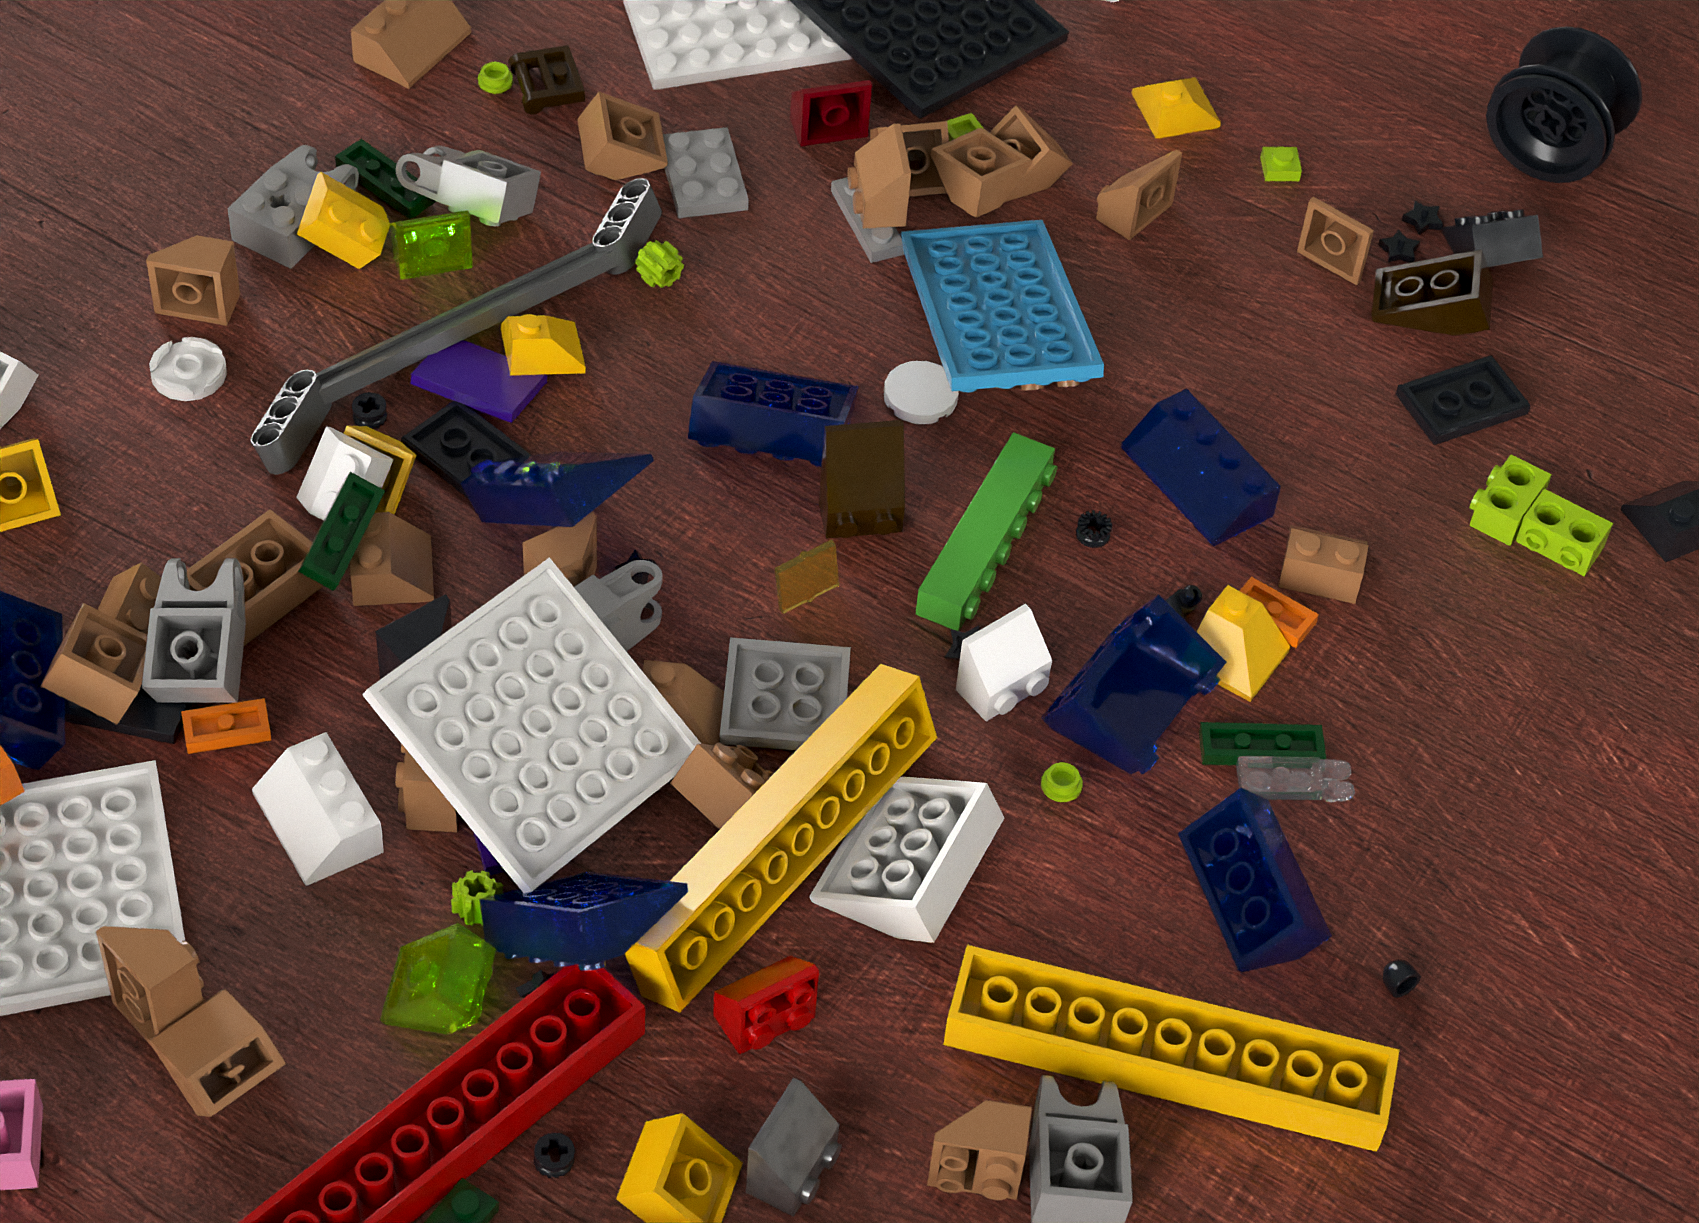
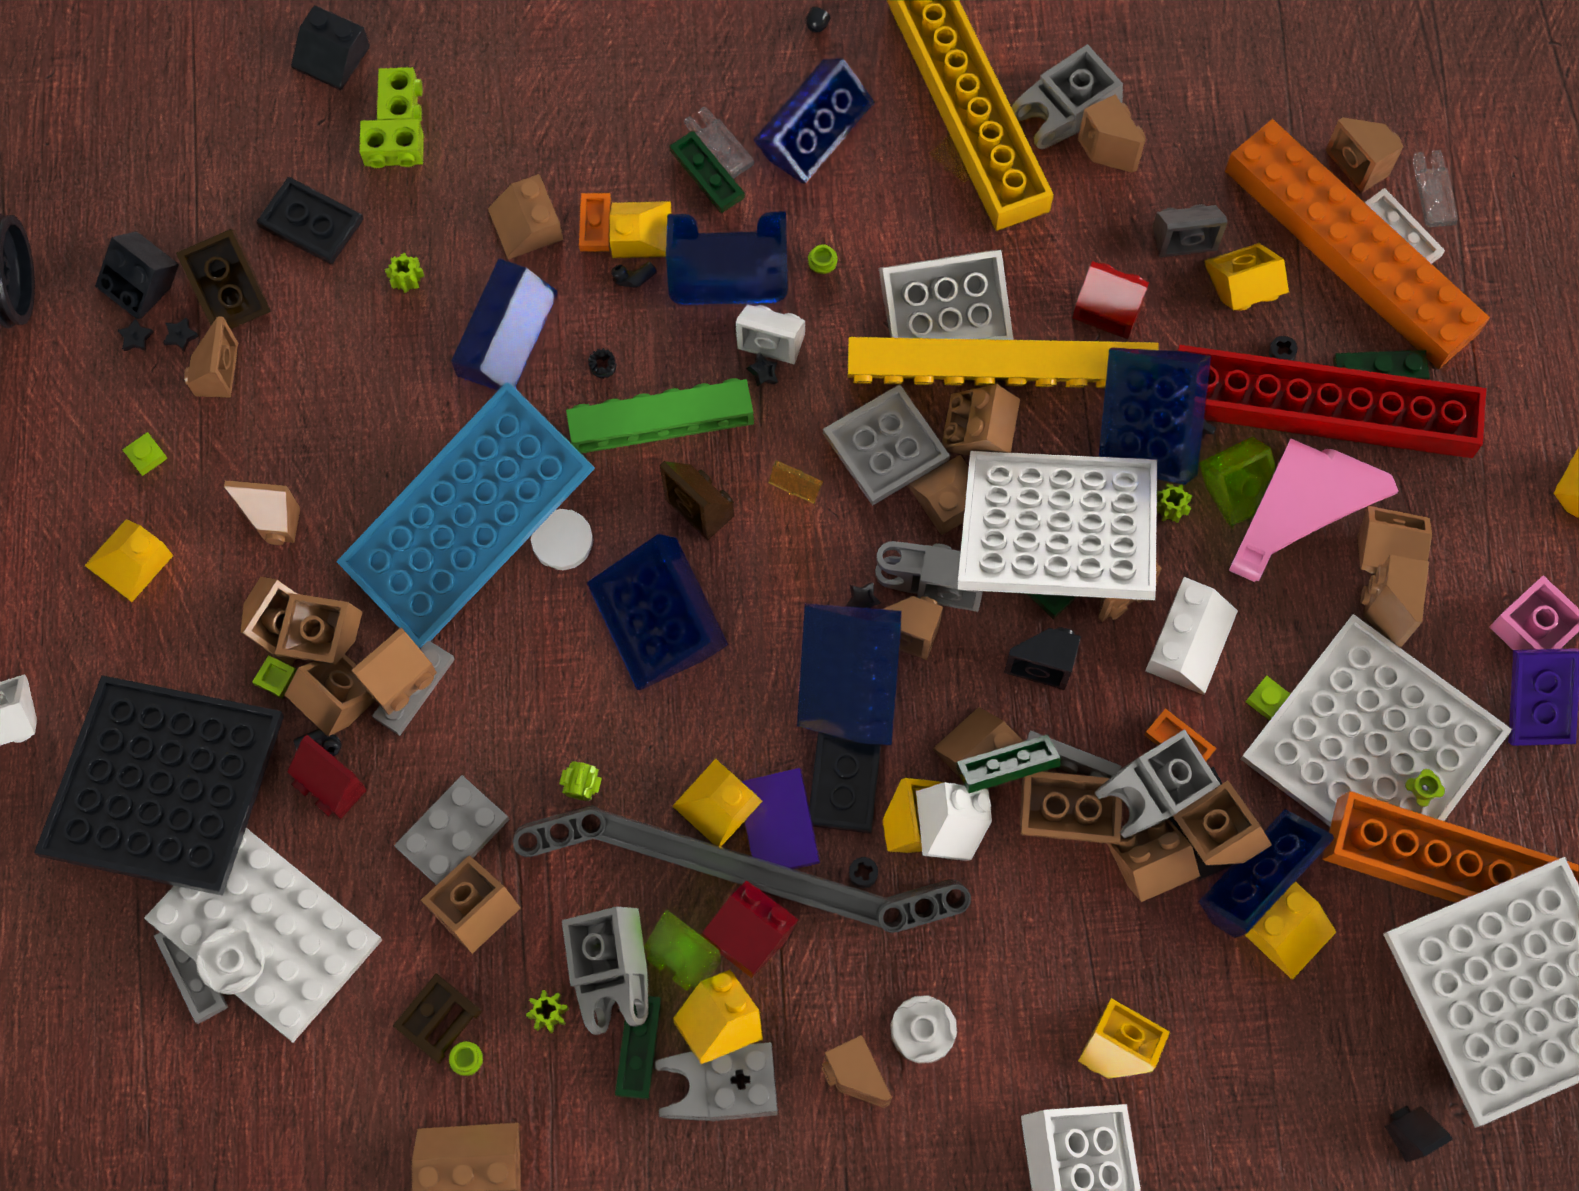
camera: 120 degrees left, 20 degrees up
(189, 839) = (1267, 698): none -> lime plate
(304, 624) = (1076, 760): none -> light grey plate
(354, 1026) = (1305, 495): none -> bright pink panel
(400, 283) = (749, 928): none -> dark red slope
(477, 134) = (539, 1006): none -> lime gear
(862, 134) = (330, 743): none -> black arm
(1333, 428) = (404, 272): none -> lime gear

